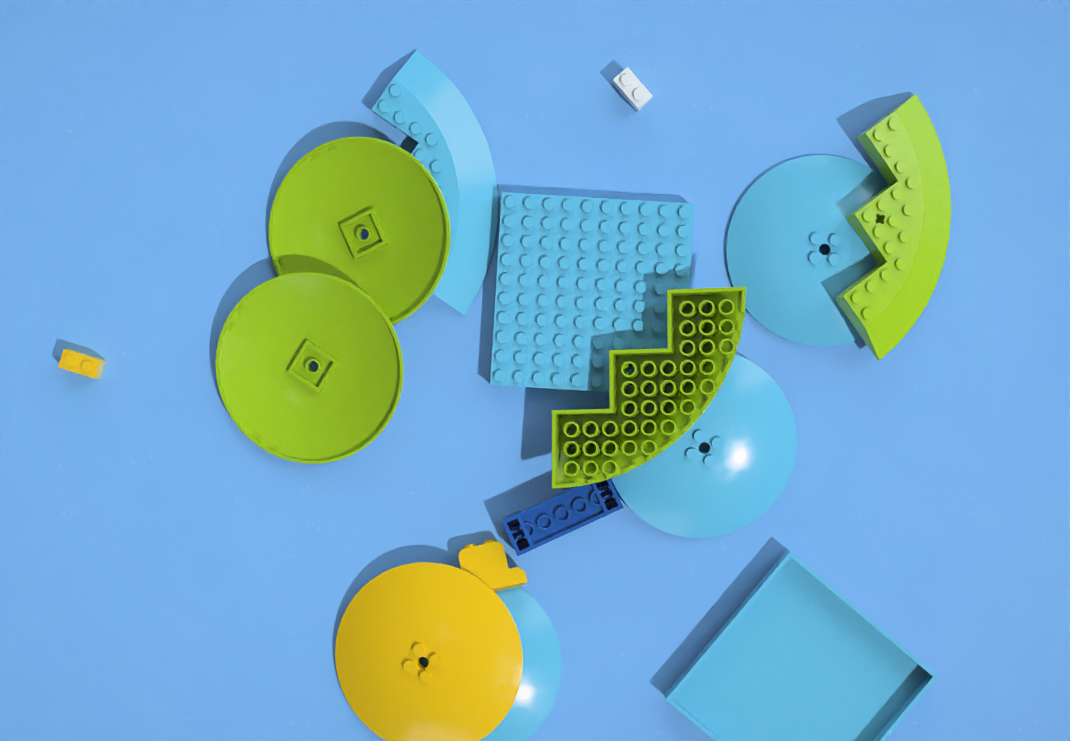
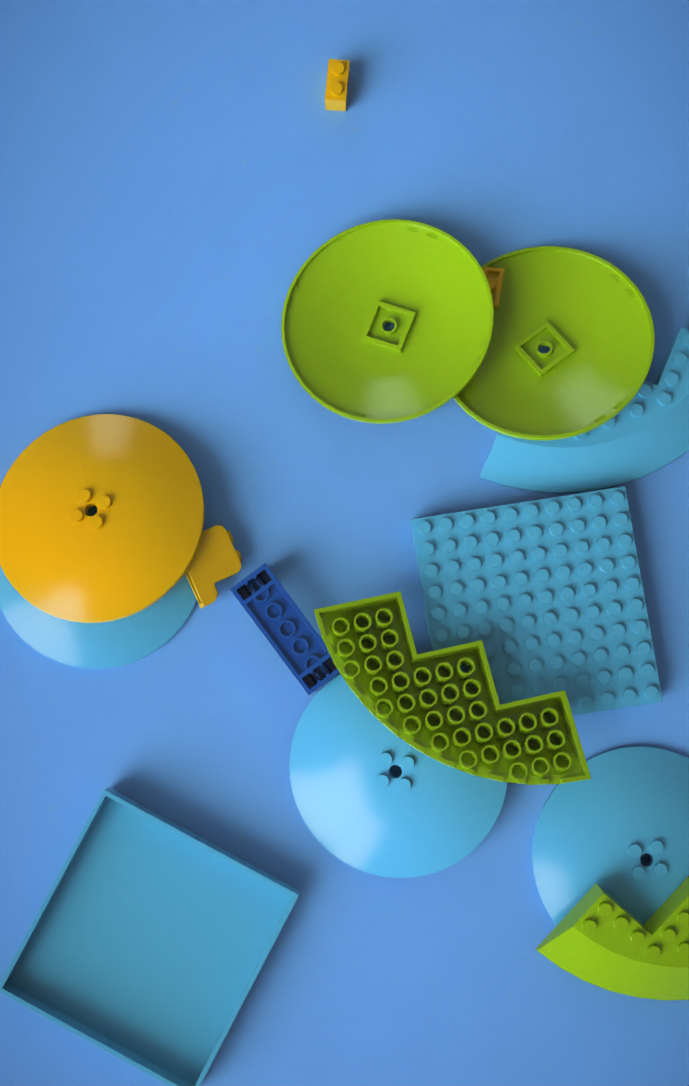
camera: 85 degrees right, 5 degrees down
(293, 264) = (495, 279): none -> yellow plate

